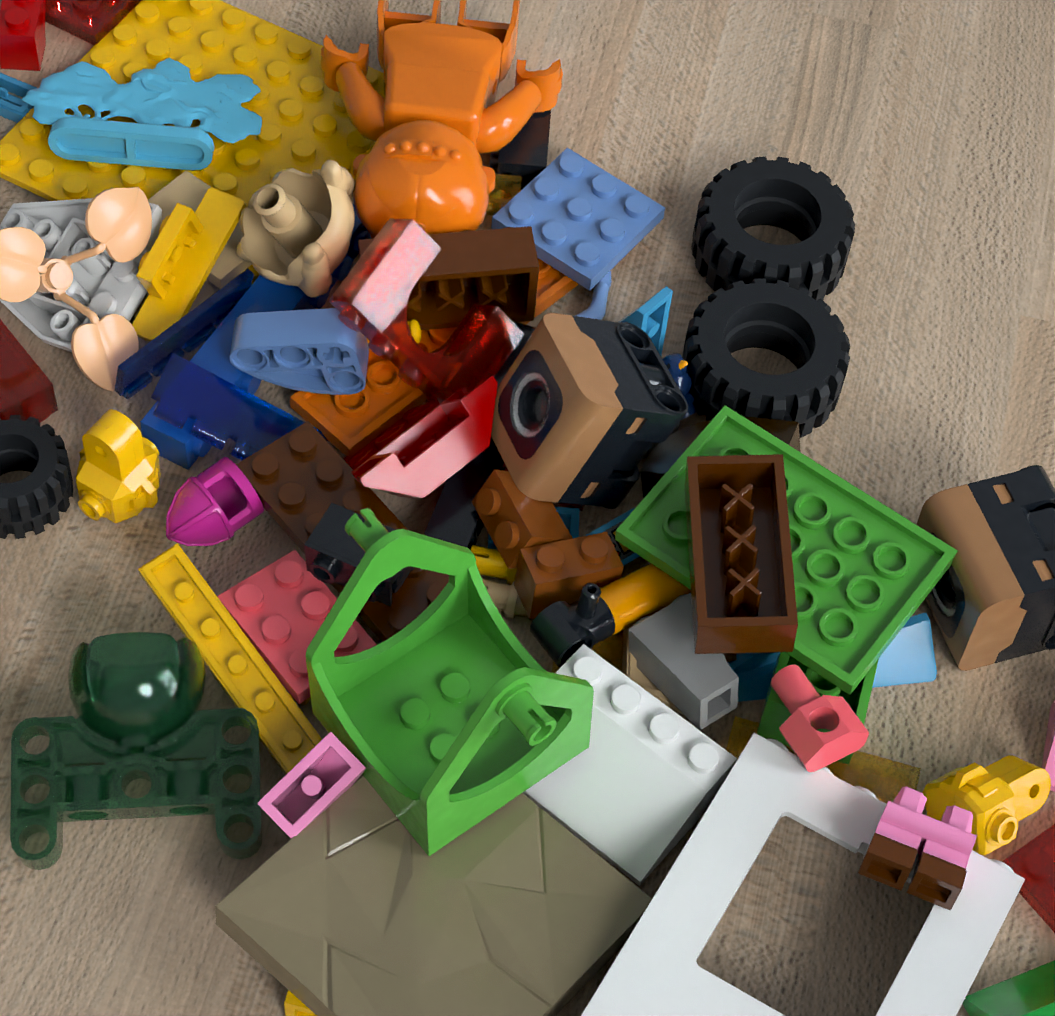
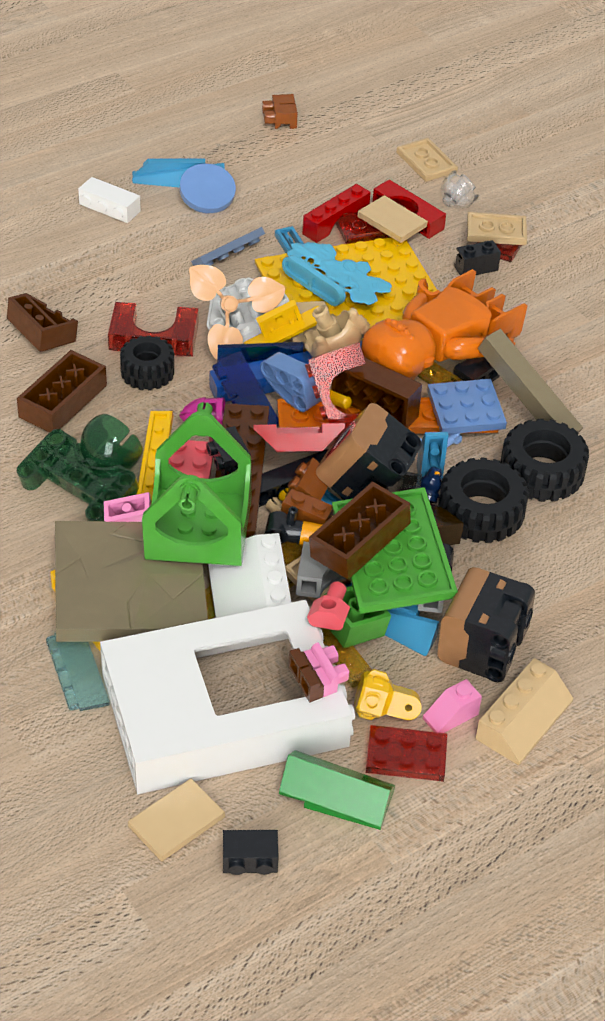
camera: 45 degrees right, 10 degrees down
(117, 470) = (185, 381): yellow piece -> none
(637, 122) = (525, 380): none -> dark tan brick

